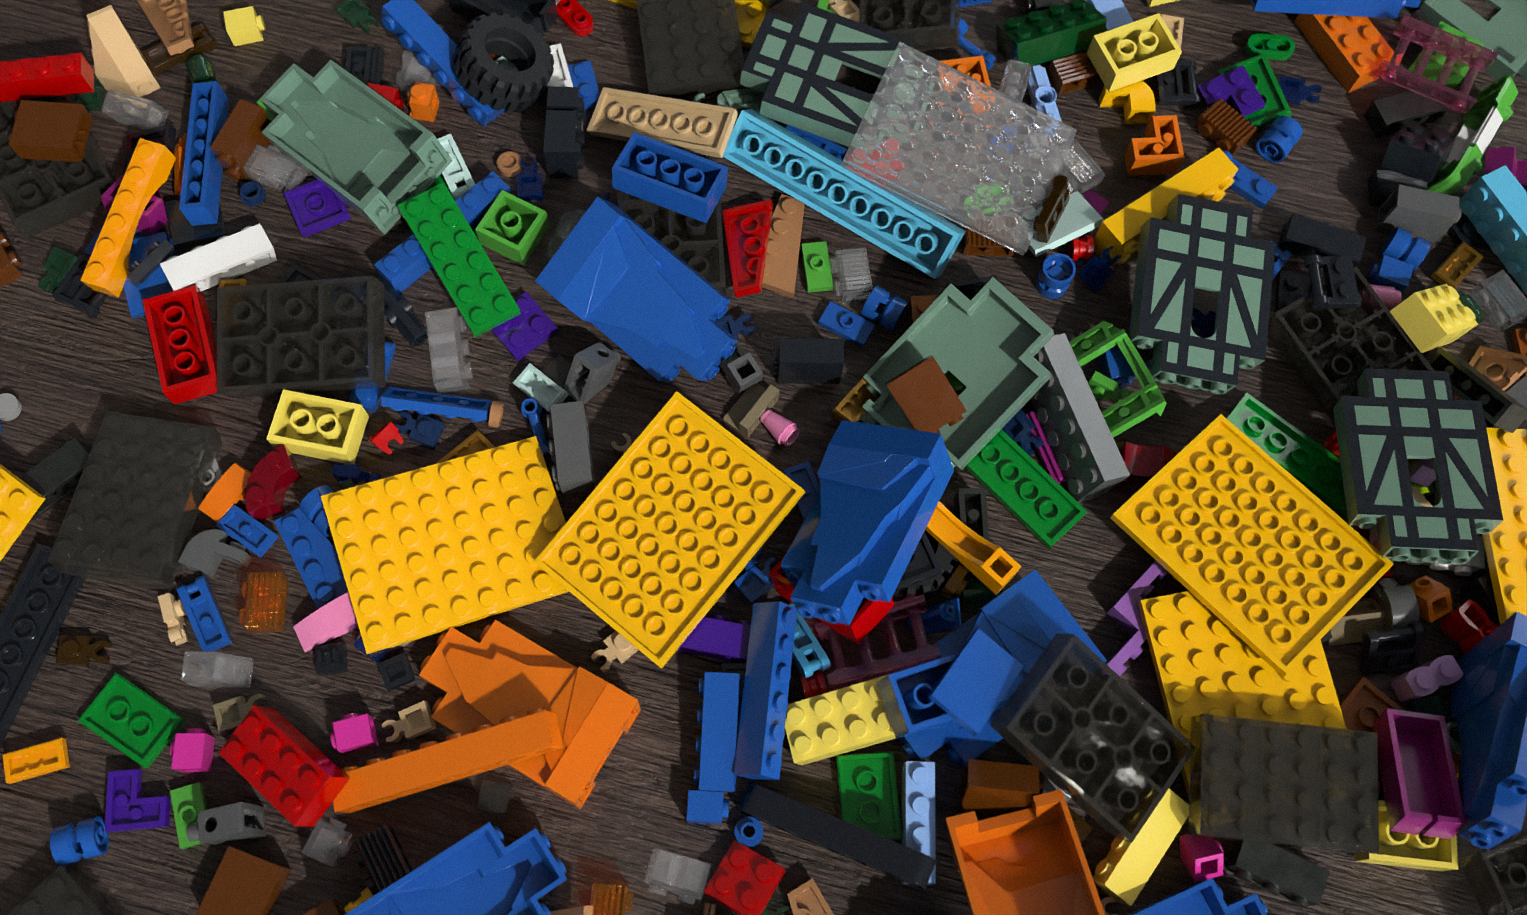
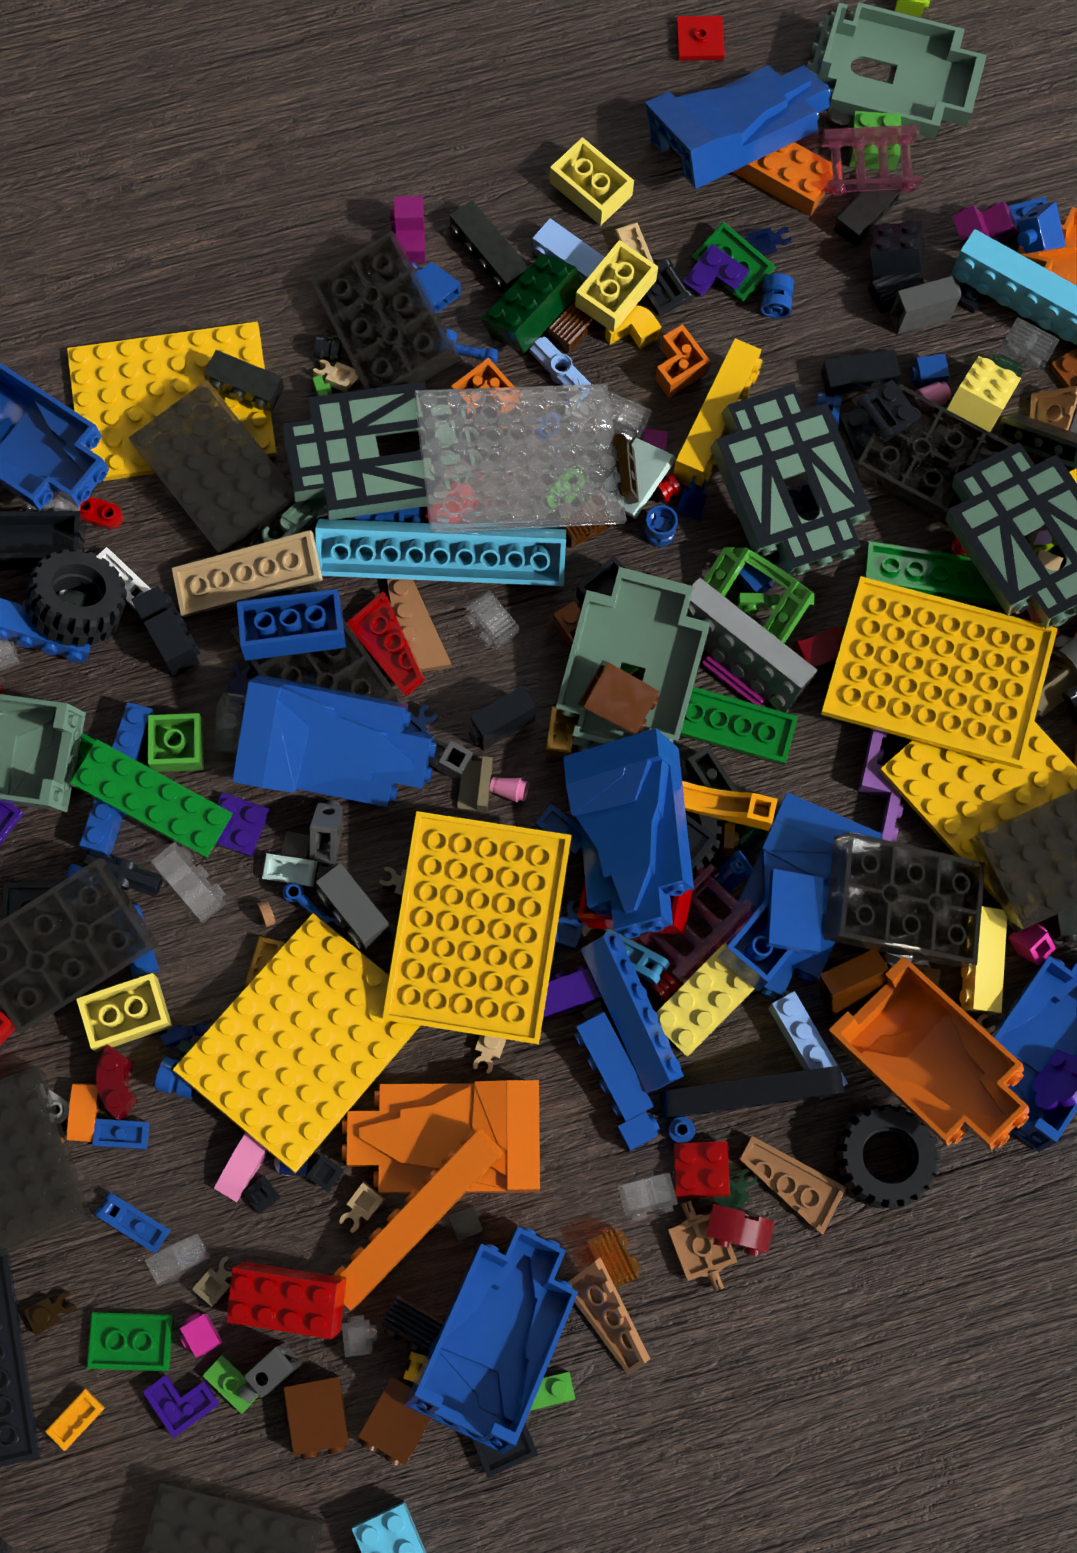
camera: 30 degrees left, 5 degrees up
(73, 841) = (155, 1459): blue wheel -> none
(172, 613) = (105, 1235): tan plate -> none
(208, 549) = (100, 1166): dark grey brick -> none
(264, 602) = (177, 1183): clear orange brick -> none
(313, 557) = (194, 1122): blue wing -> none
(354, 733) = (322, 1242): dark pink brick -> none
(384, 435) = (182, 987): red tile -> none
(423, 102) = (18, 671): orange brick -> none
(423, 430) = (212, 963): dark blue plate -> none
(437, 403) = (210, 933): blue plate -> none
(456, 170) = (93, 716): light aqua plate -> none
(509, 164) = (131, 684): medium nougat tile -> none
(530, 183) = (162, 692): clear blue plate -> none
(584, 78) = (150, 571): blue plate -> none
(817, 267) = (455, 628): bright green plate -> none
(846, 324) = (510, 666): blue plate -> none
(869, 792) = (756, 1044): green tile -> none
(892, 313) = (545, 632): blue wheel -> none
(1015, 79) = (529, 368): clear brick -> none
(1020, 429) = (707, 678): dark blue plate -> none
(1225, 127) = (726, 308): reddish brown brick -> none
(1251, 185) = (772, 349): blue plate -> none
(1270, 45) = (722, 210): green plate -> none
(1403, 247) = (930, 340): blue wheel -> none
(1457, 265) = (979, 332): pearl gold plate -> none
(1475, 135) = (935, 205): bright green piece -> none

